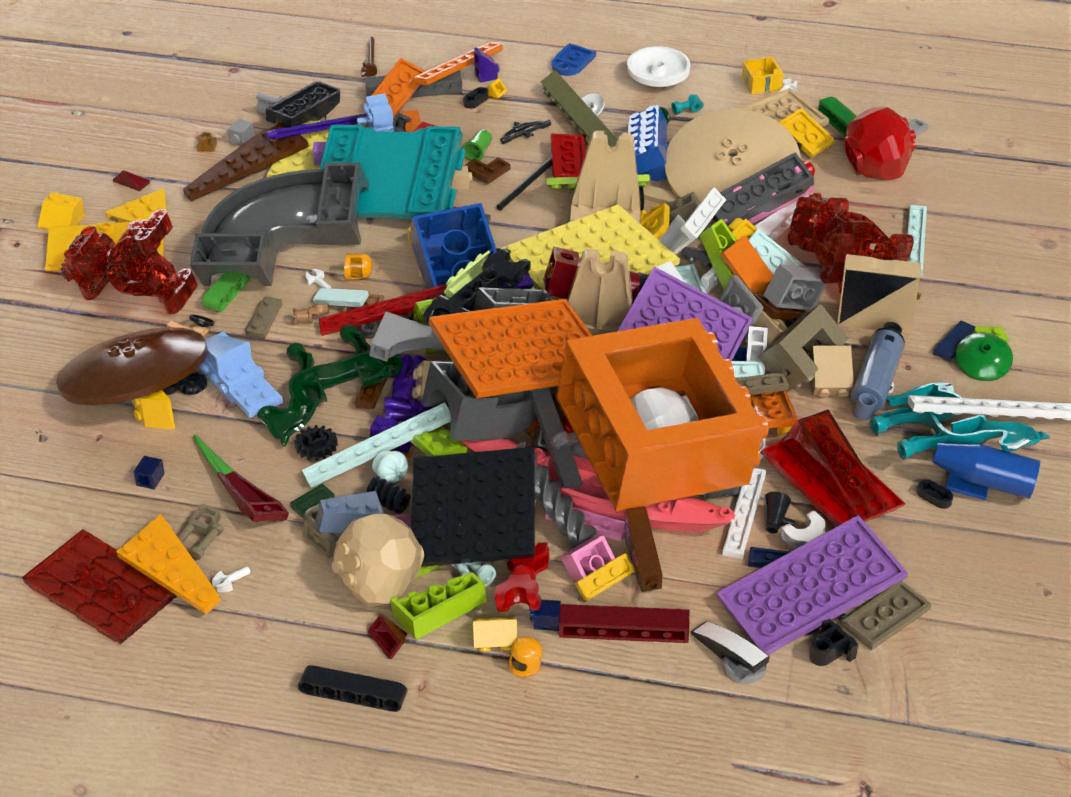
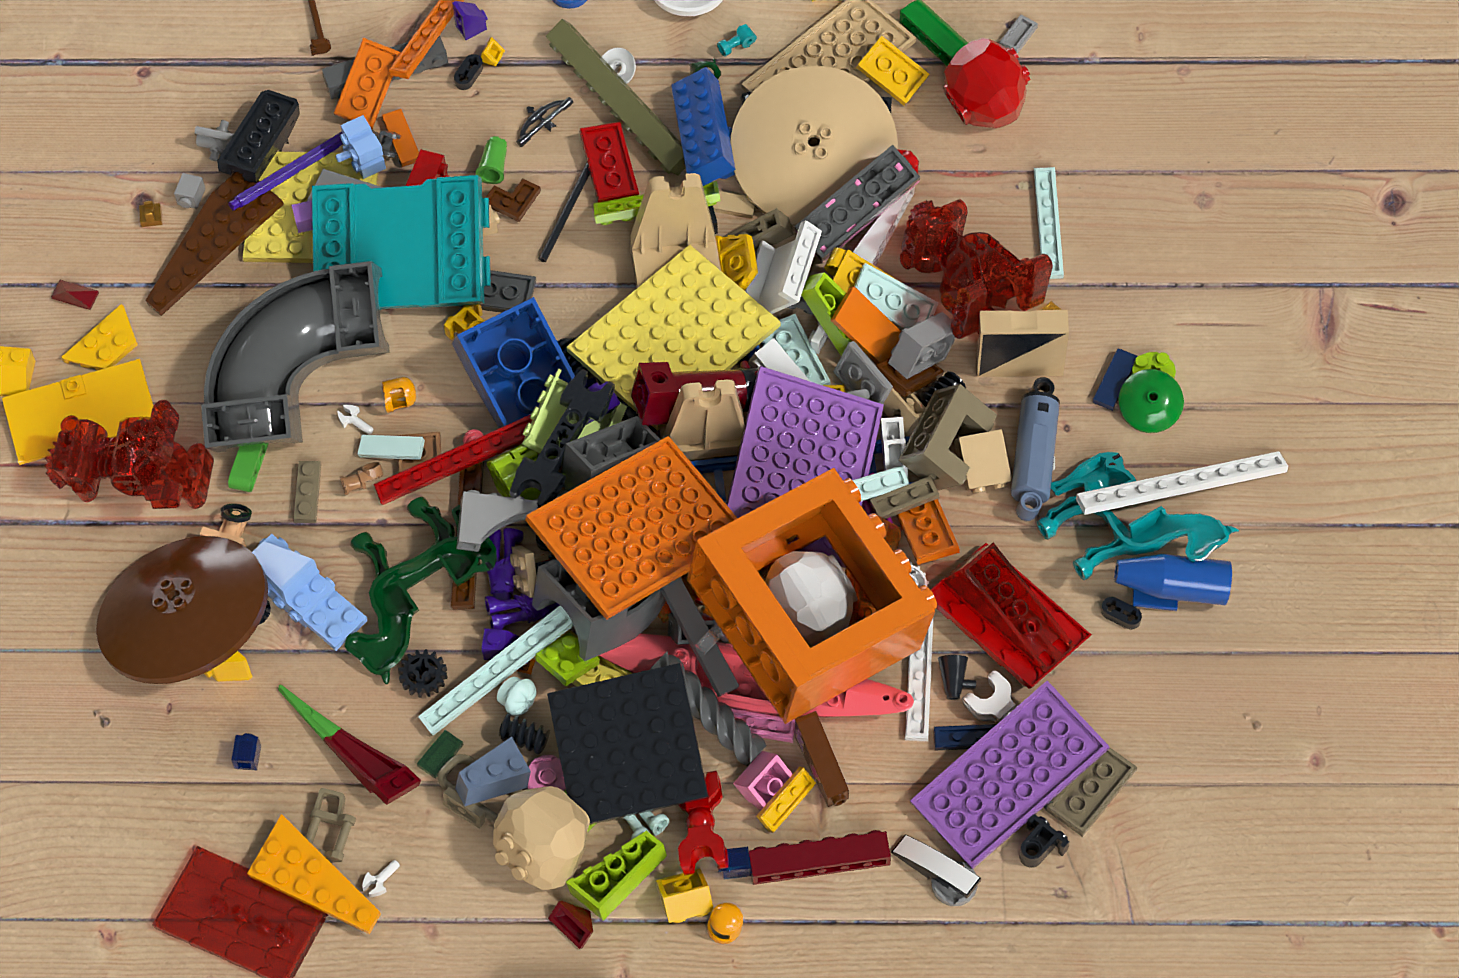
camera: 10 degrees left, 20 degrees up
(369, 330) = (436, 494): dark grey bush -> none

